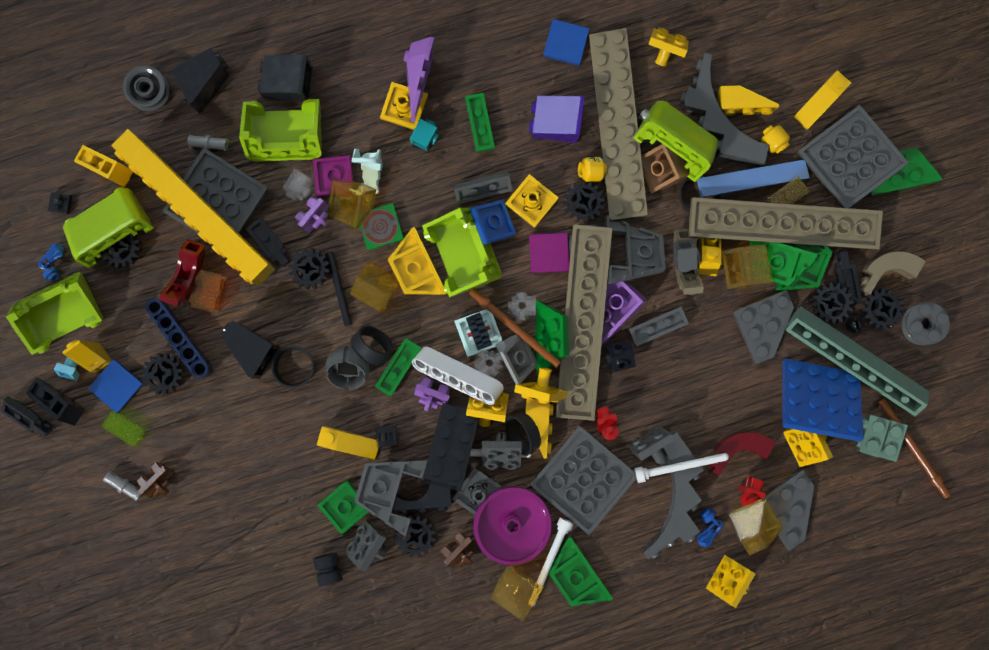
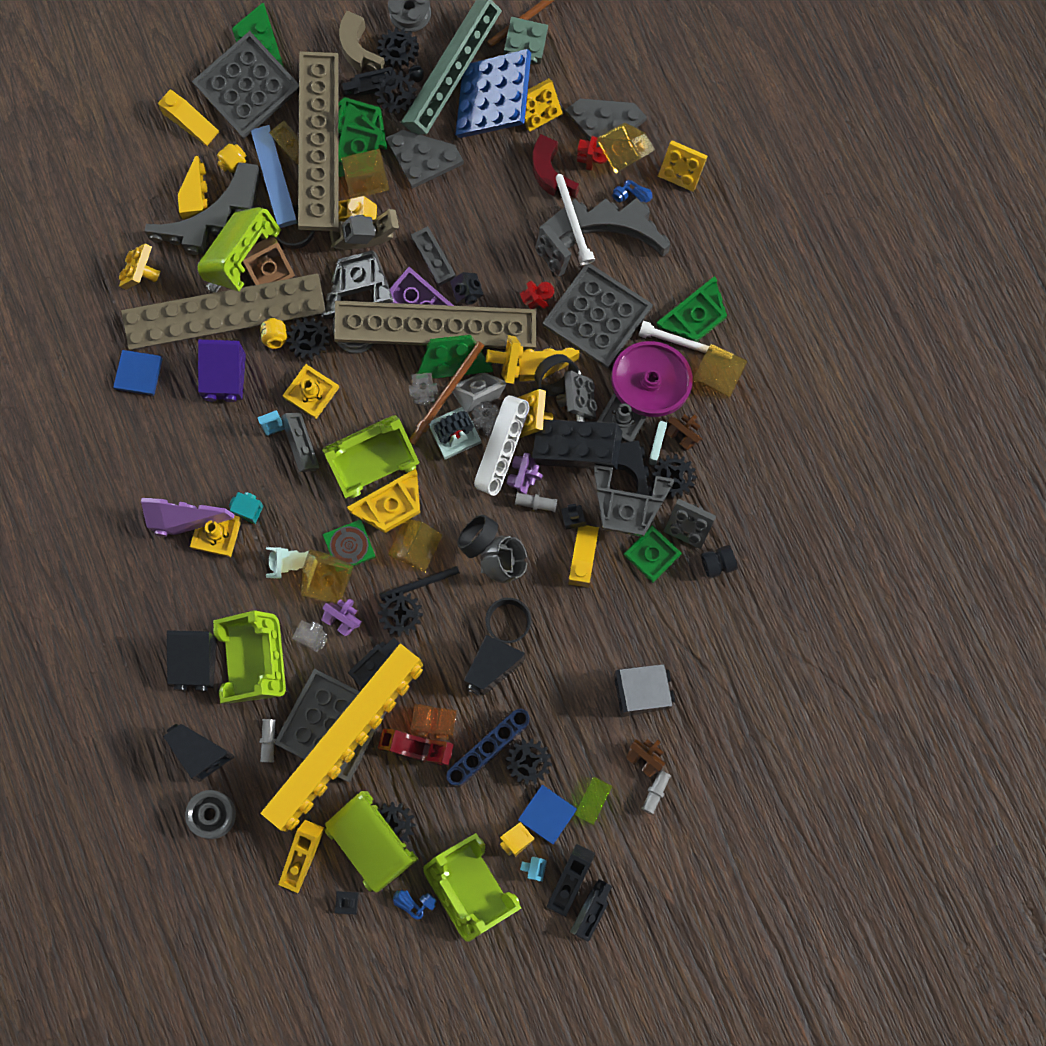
camera: 90 degrees left, 10 degrees down
(214, 484) = (643, 690): none -> slope
(329, 169) = (293, 606): magenta tile -> none
(398, 367) = (499, 511): green plate -> none
(404, 403) = (536, 502): none -> light grey pin
(449, 524) = (657, 443): none -> light aqua tile
(479, 122) = (229, 452): green plate -> none
(493, 221) = (336, 427): blue tile -> none
(500, 160) = (271, 423): none -> medium azure tile
(549, 253) = (364, 370): magenta tile -> none

